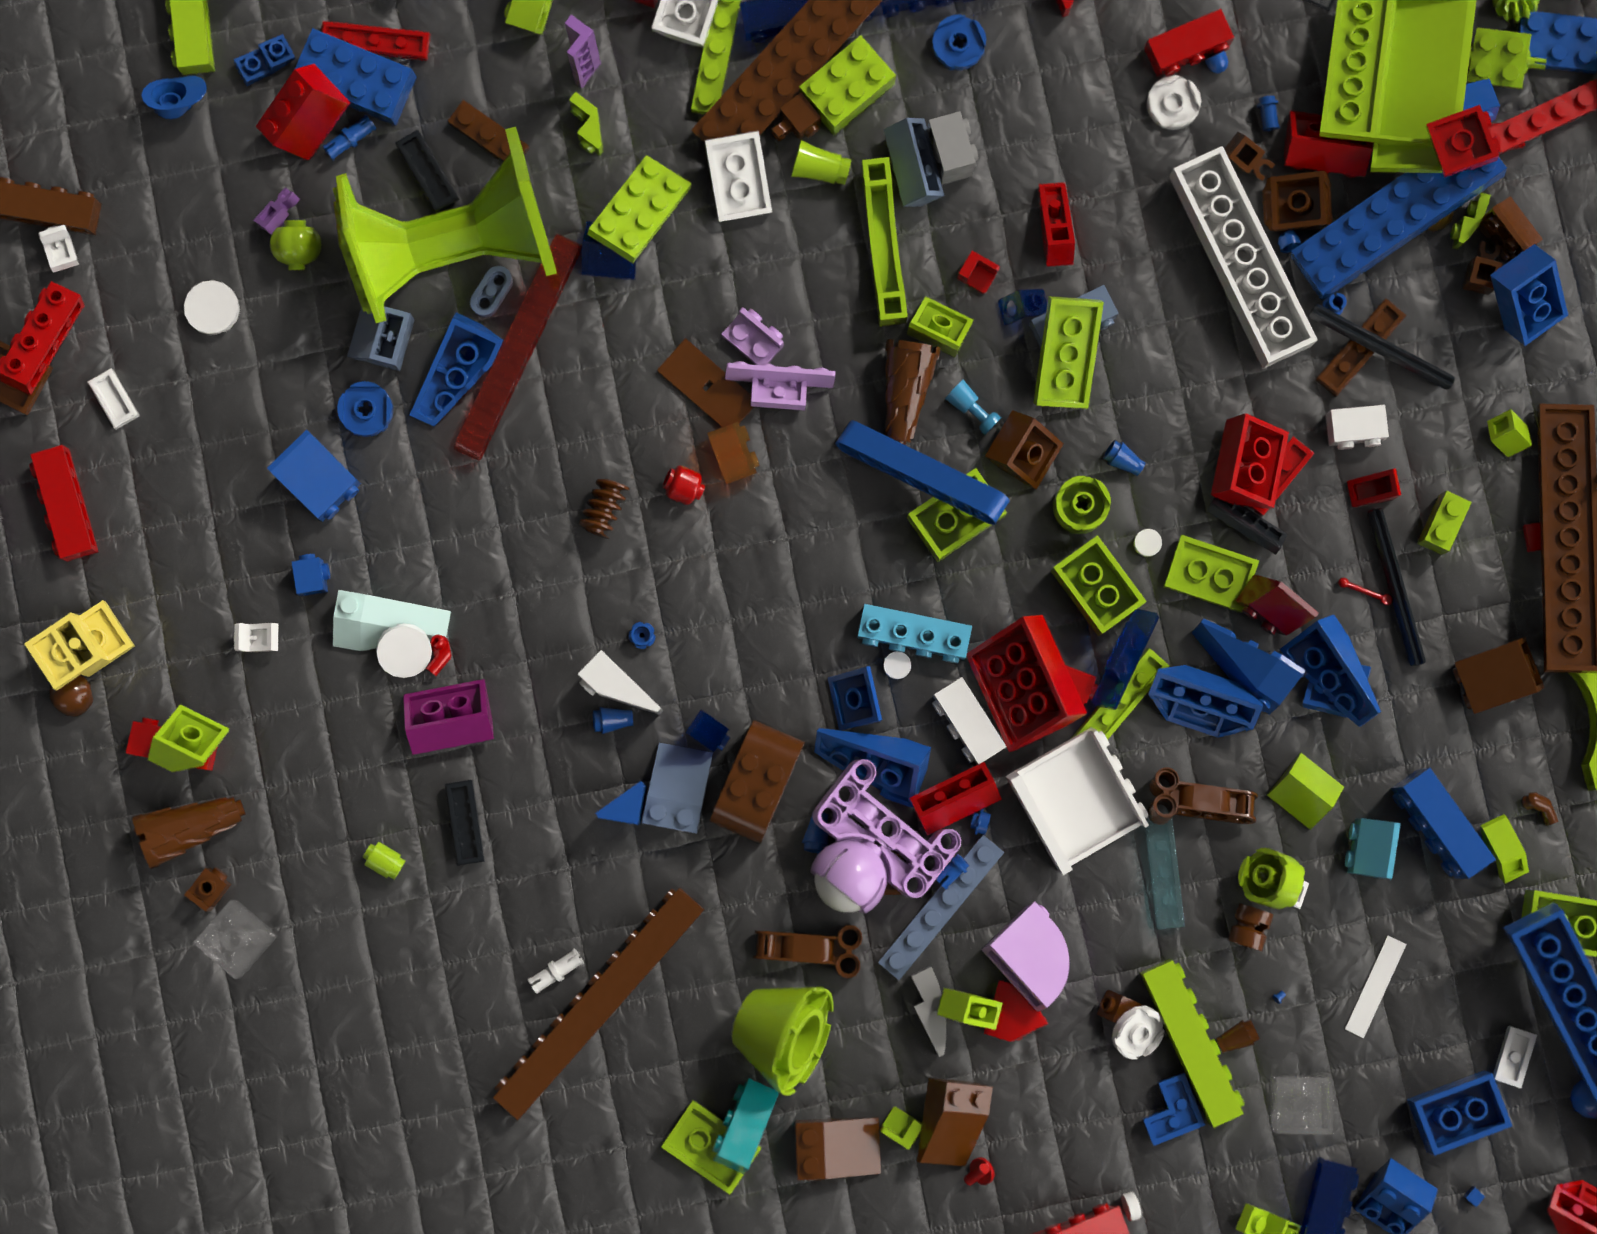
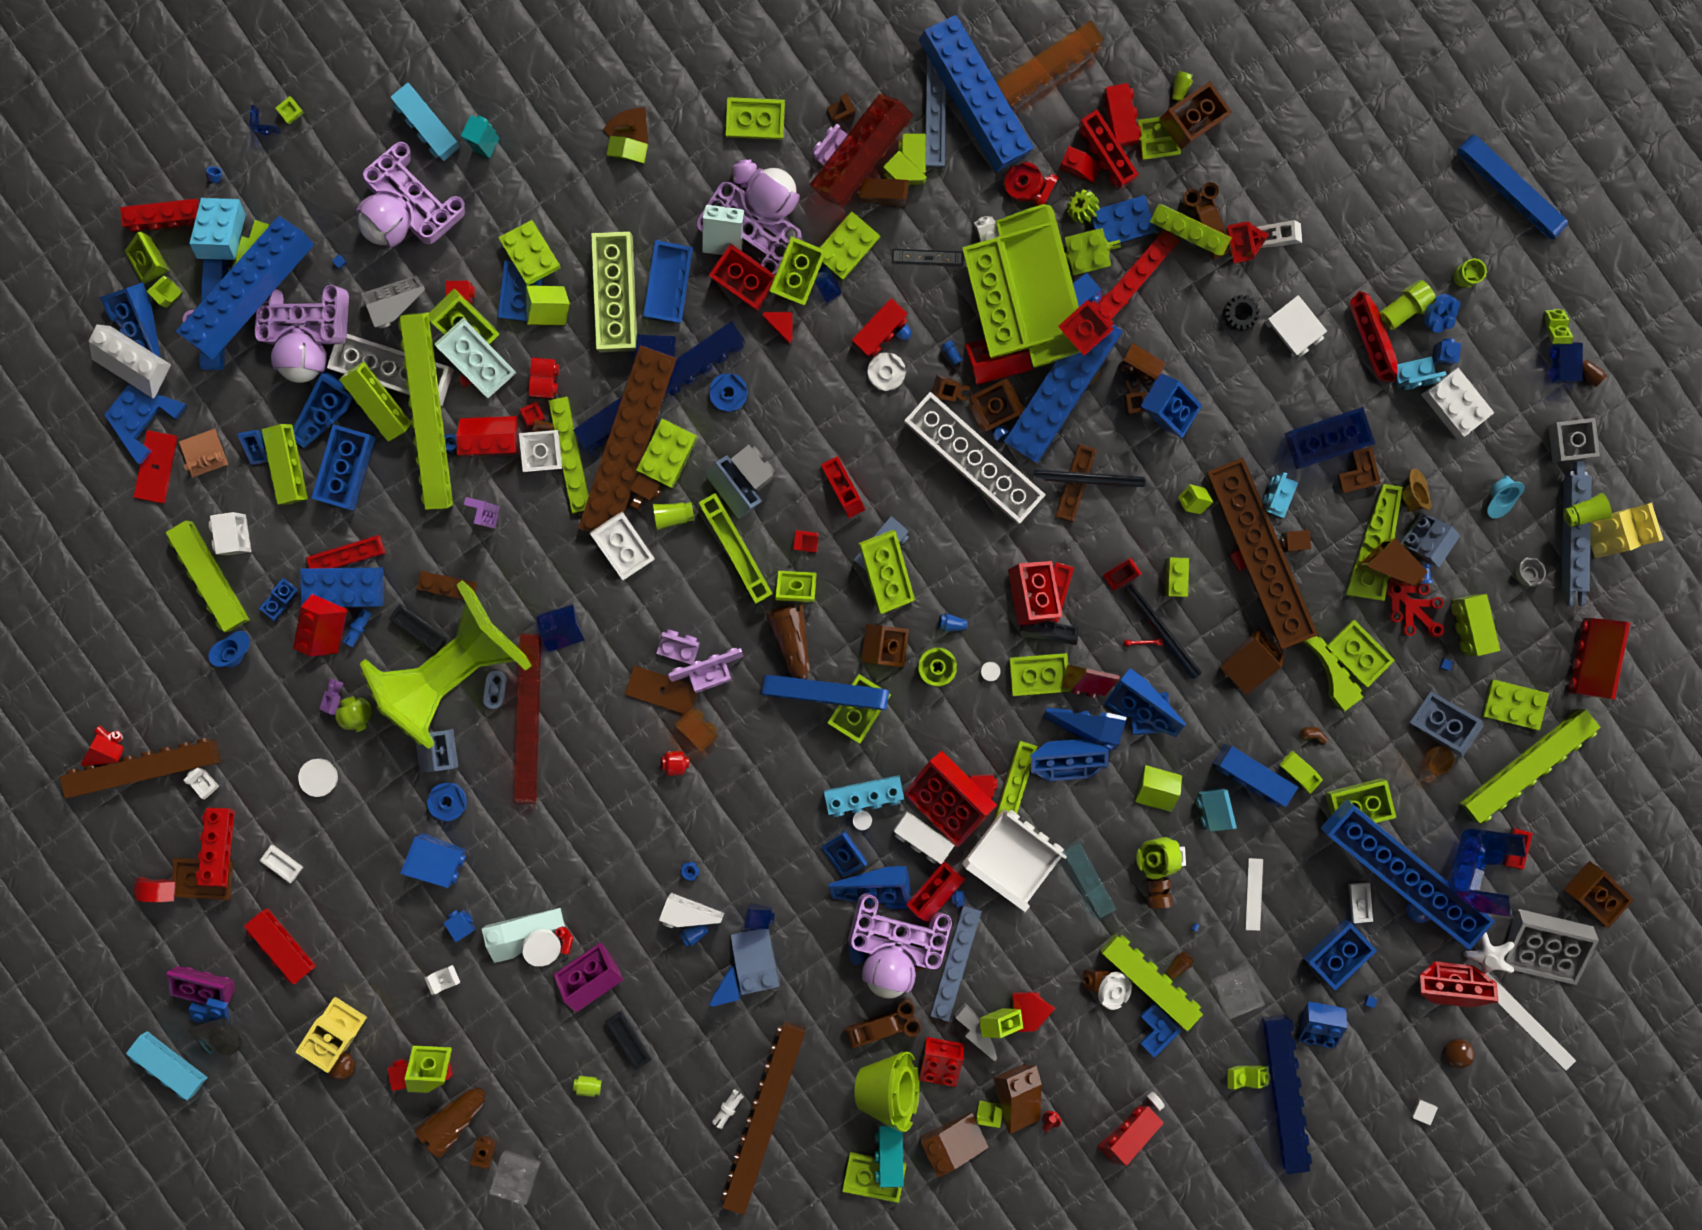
camera: 20 degrees left, 5 degrees up
(460, 361) = (494, 746): blue wedge -> none
(590, 132) = (513, 555): lime slope -> none
(603, 507) = (629, 799): reddish brown piece -> none
(639, 209) = (567, 595): lime plate -> none
(757, 781) = (804, 936): reddish brown brick -> none
(866, 1031) = (942, 1062): none -> red bracket
(953, 870) = (953, 939): blue pin -> none
(965, 399) = (832, 629): dark azure piece -> none
(1028, 304) = (846, 548): clear blue bracket -> none
(1032, 955) = (1026, 971): lavender brick -> none
(1098, 585) = (970, 715): lime brick -> none
(1125, 658) = (1007, 755): clear blue bracket -> none
(1199, 800) = (1093, 825): reddish brown piece -> none
(1339, 300) = (1042, 463): blue pin -> none
(1357, 426) = (1094, 537): white brick -> none
(1467, 225) = (1112, 375): lime slope -> none

